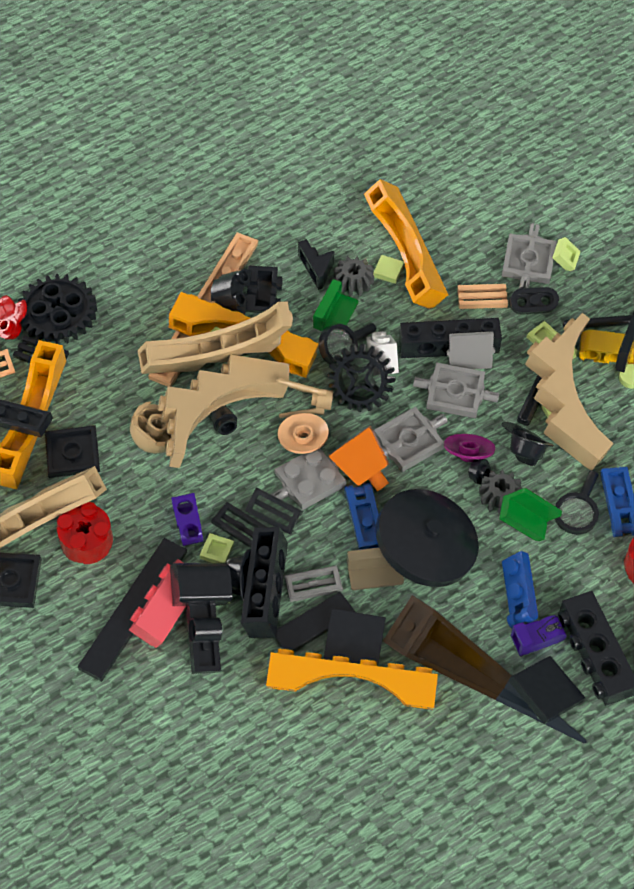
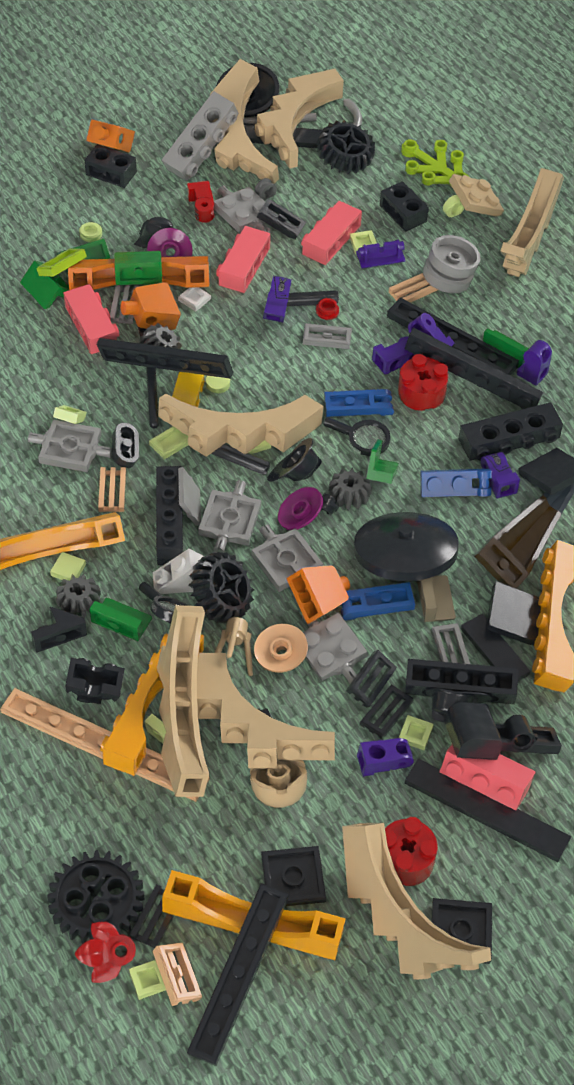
camera: 90 degrees left, 5 degrees down
(229, 288) = (95, 706): black cylinder -> none

